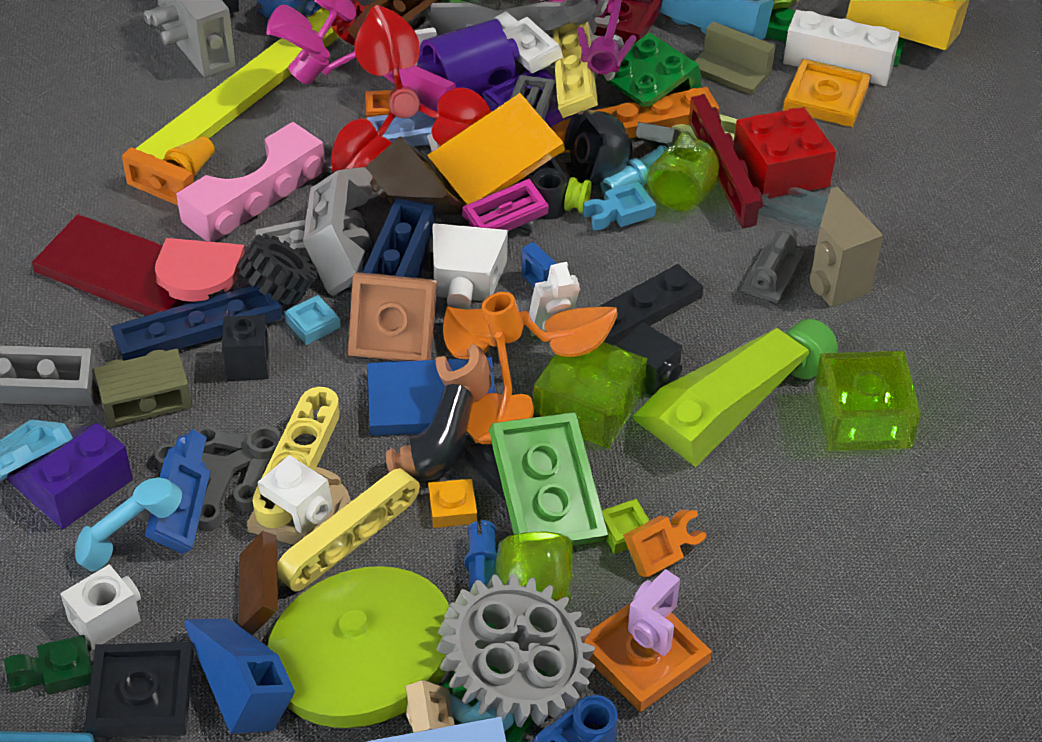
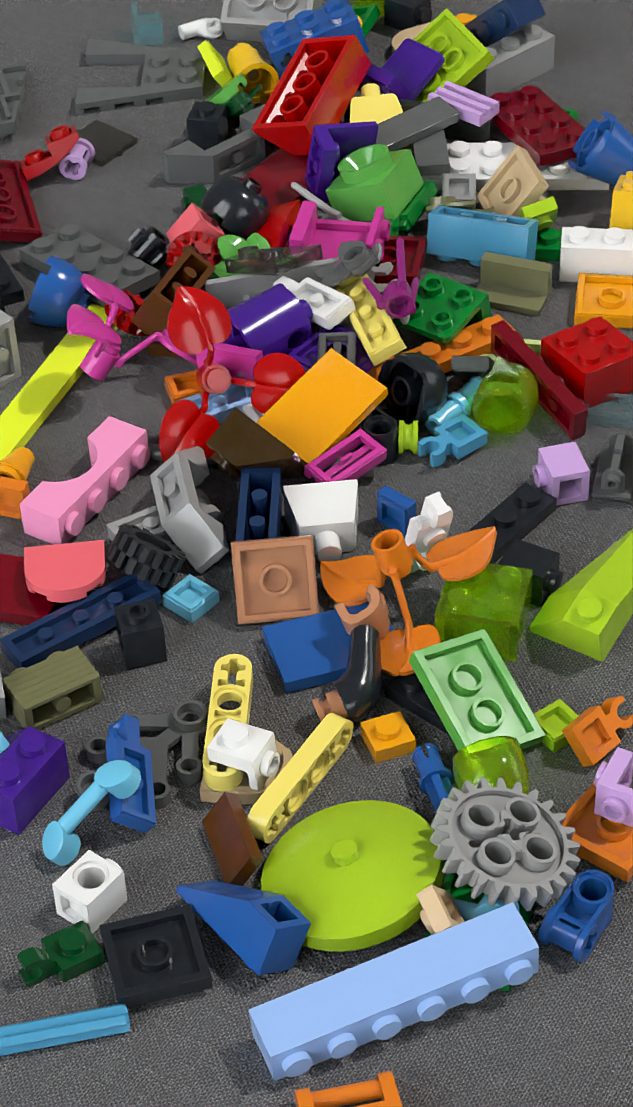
camera: 10 degrees left, 5 degrees down
(716, 261) = (562, 473): none -> lavender brick

